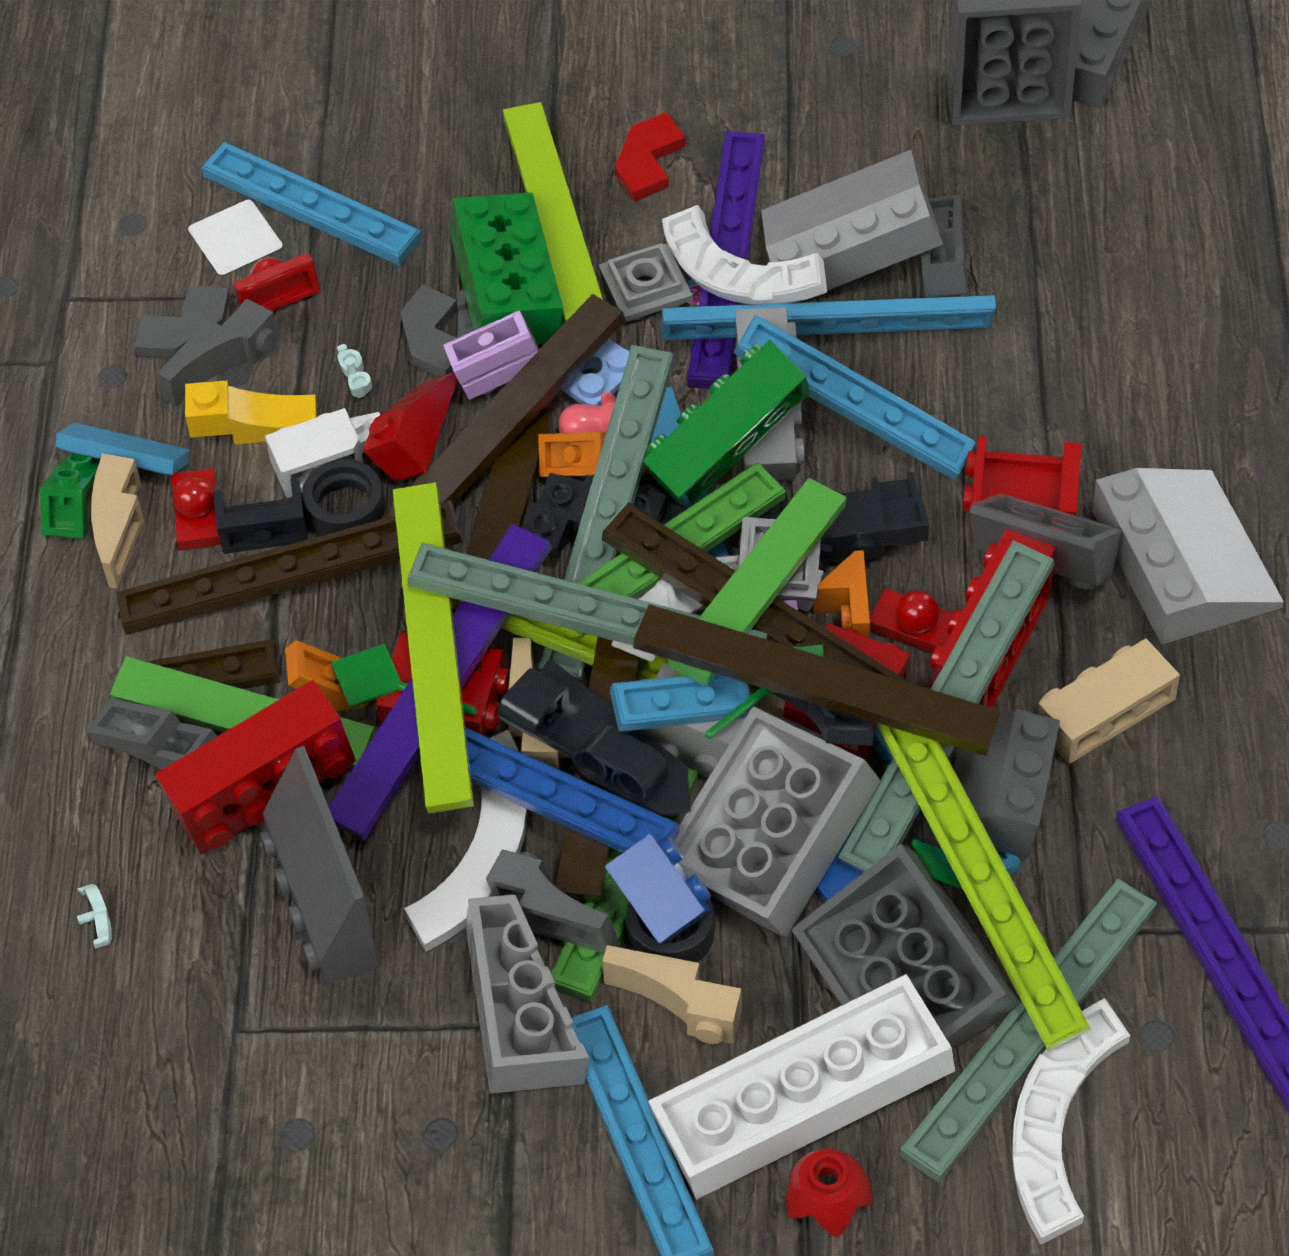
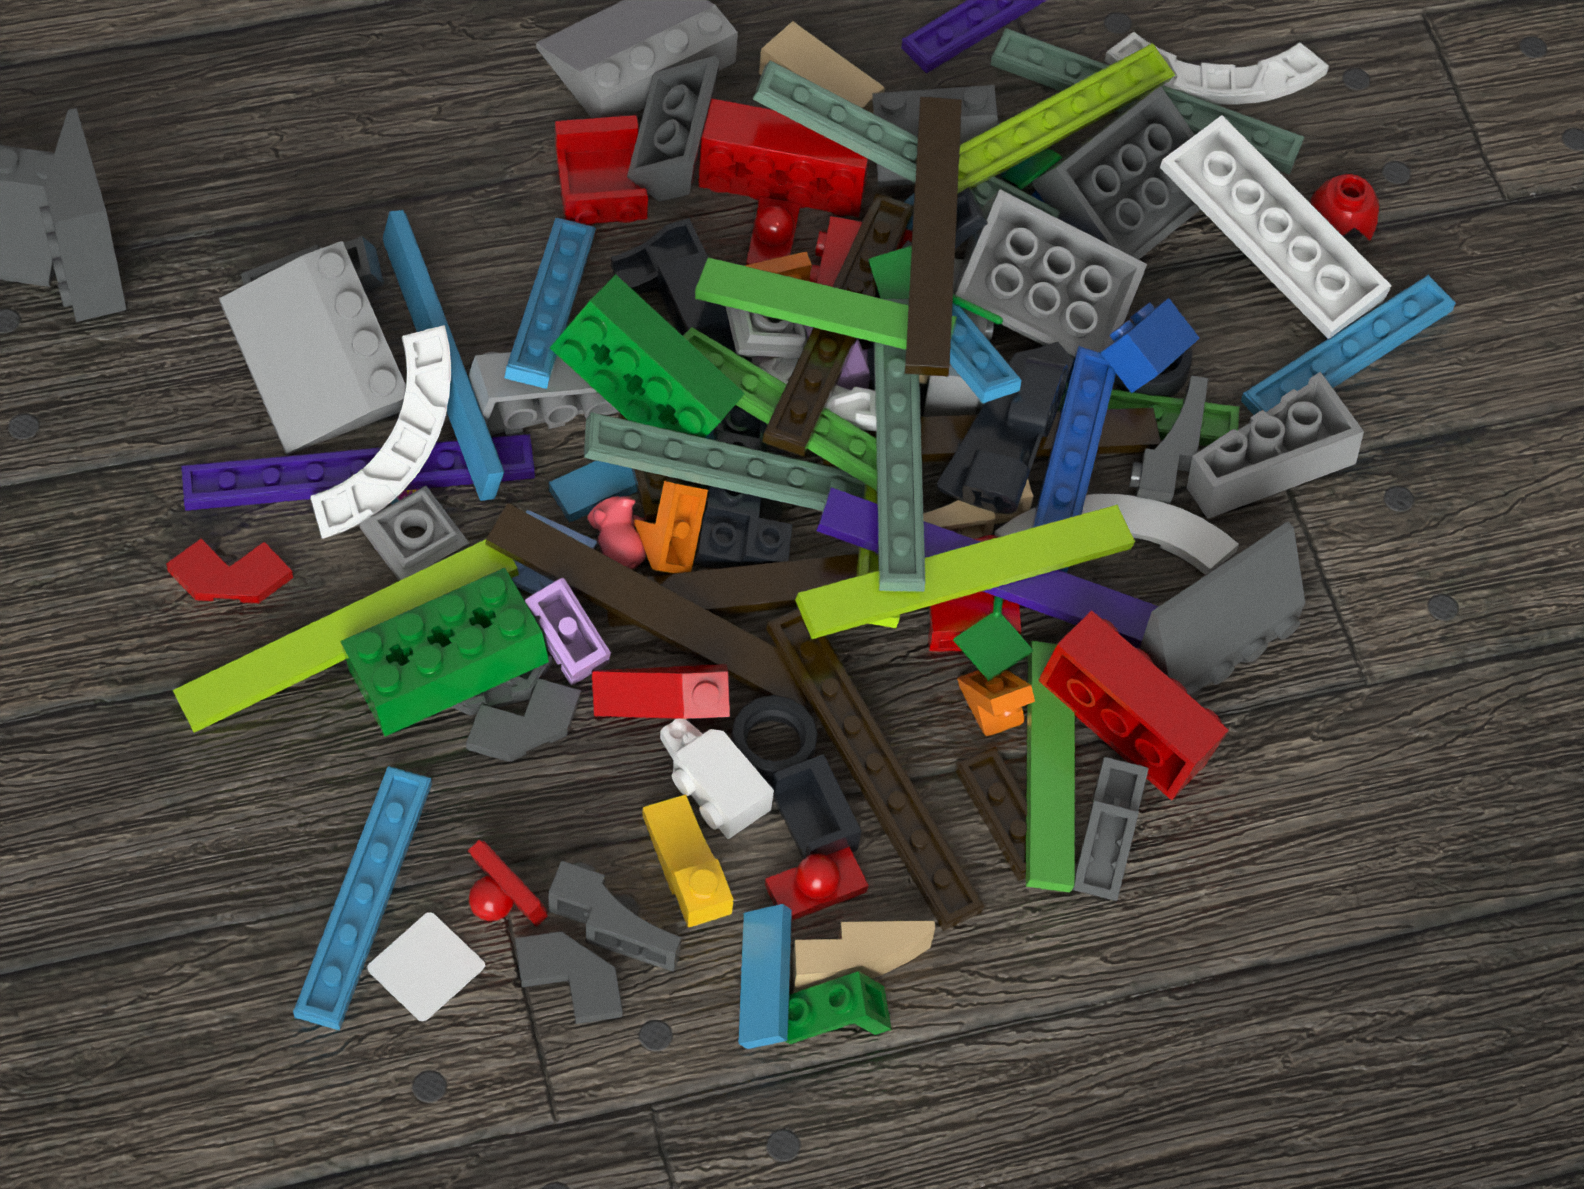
camera: 115 degrees left, 5 degrees up
(100, 915) = (1310, 821): light aqua piece -> none
(352, 366) = (608, 776): light aqua piece -> none
(706, 1007) = (1223, 319): tan slope -> none

